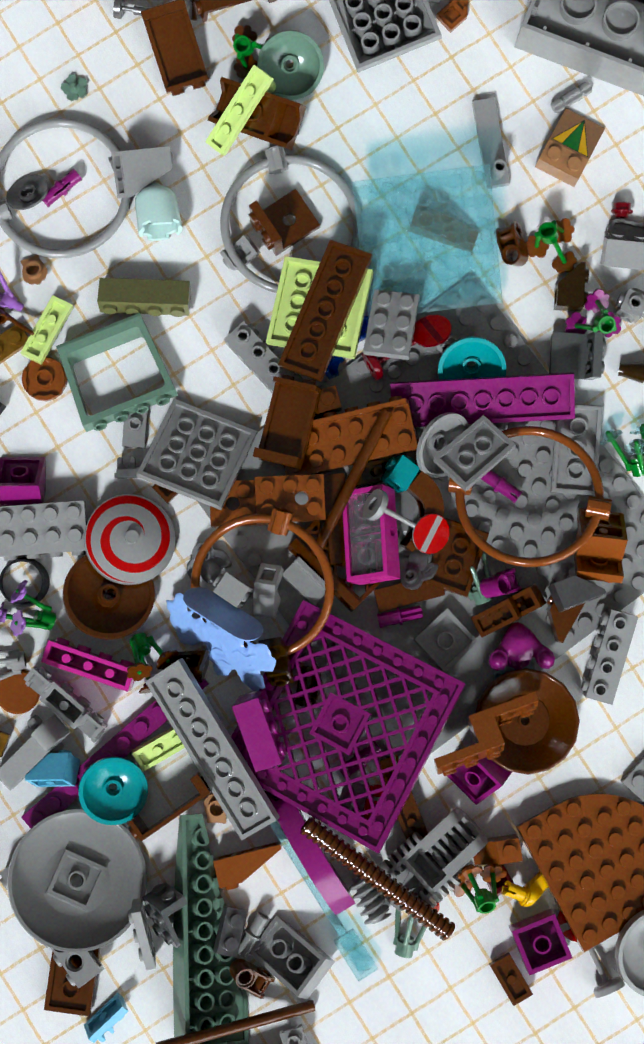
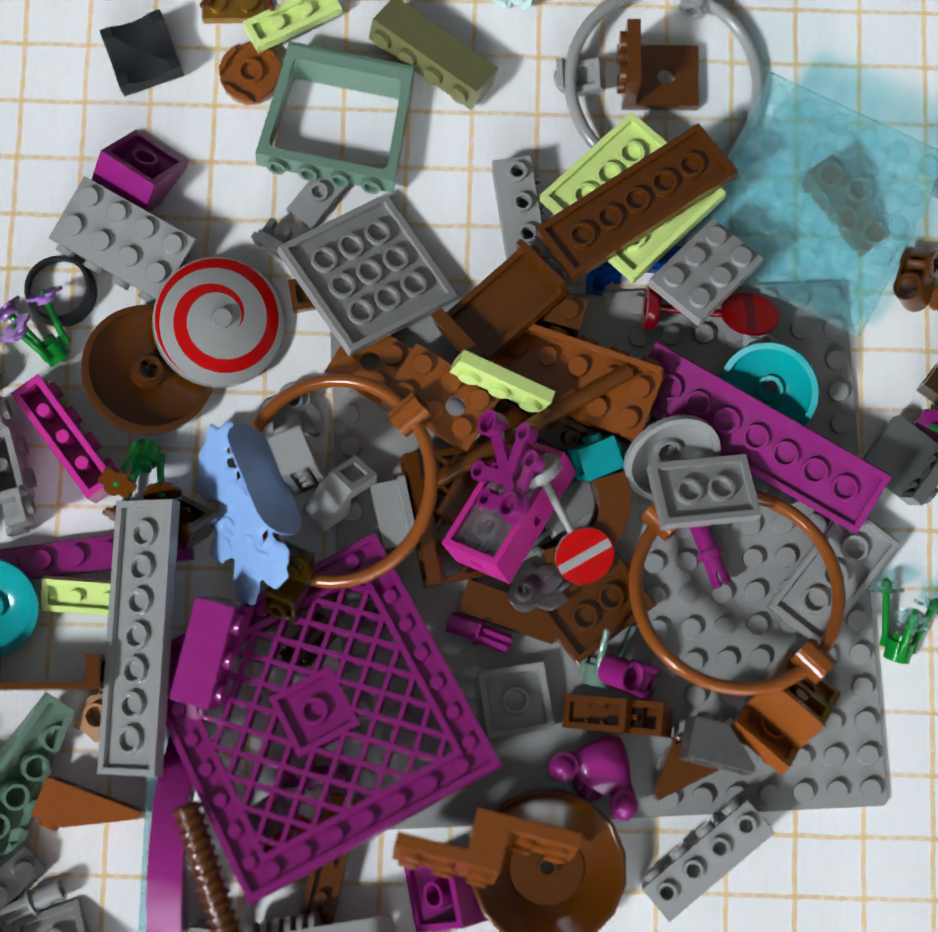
camera: 30 degrees right, 5 degrees down
(319, 467) = (501, 382): none -> yellowish green plate
(375, 533) = (514, 503): none -> magenta plant

